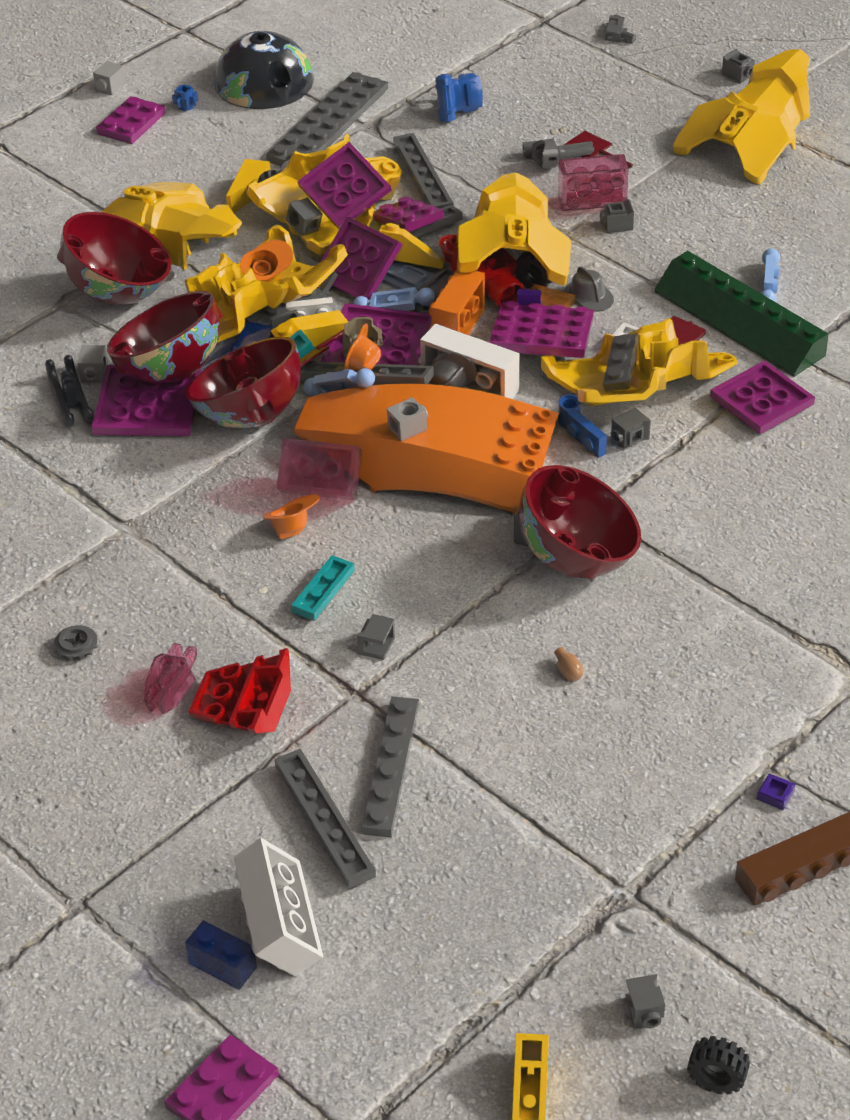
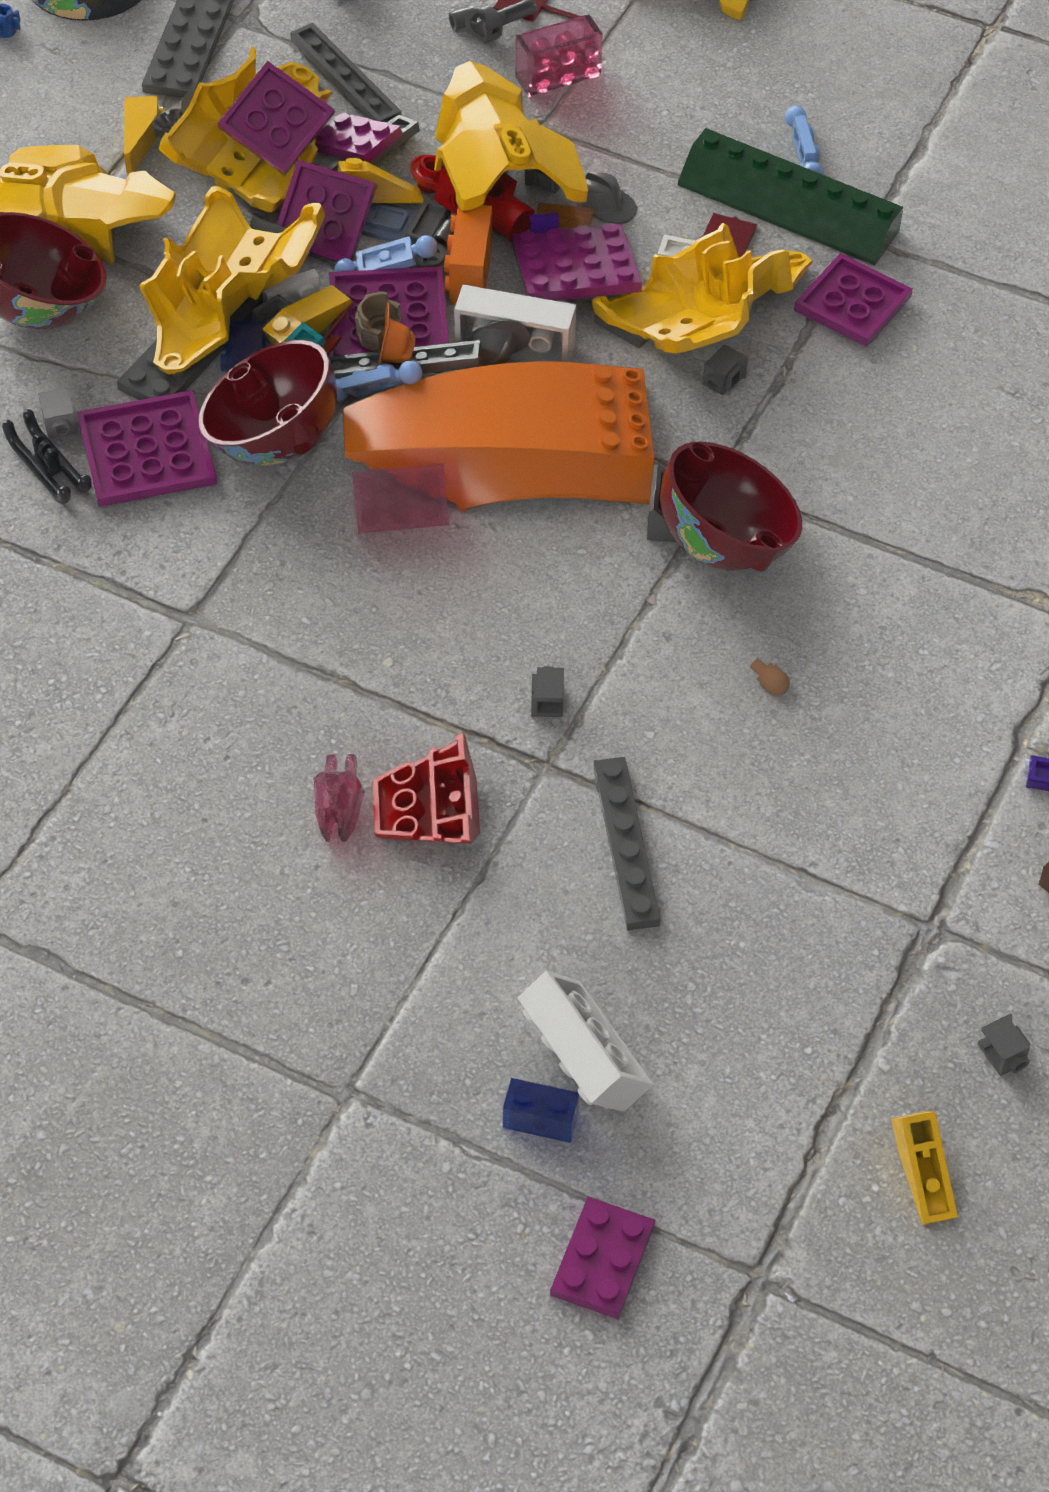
camera: 20 degrees left, 10 degrees up
(69, 636) = (190, 772): dark grey gear -> none
(168, 339) = (154, 366): dark red piece -> none
(267, 260) = (227, 236): orange piece -> none
(291, 517) = (388, 561): orange piece -> none
(304, 216) = (234, 165): dark grey brick -> none
(322, 588) = (460, 645): teal plate -> none
(325, 818) = (582, 922): dark grey plate -> none
(407, 419) = (487, 418): light grey brick -> none
(527, 274) = (532, 194): black tyre -> none
(580, 427) = (667, 379): blue plate -> none
(617, 216) = (601, 94): dark grey window -> none
(621, 362) = (688, 290): dark grey plate -> none

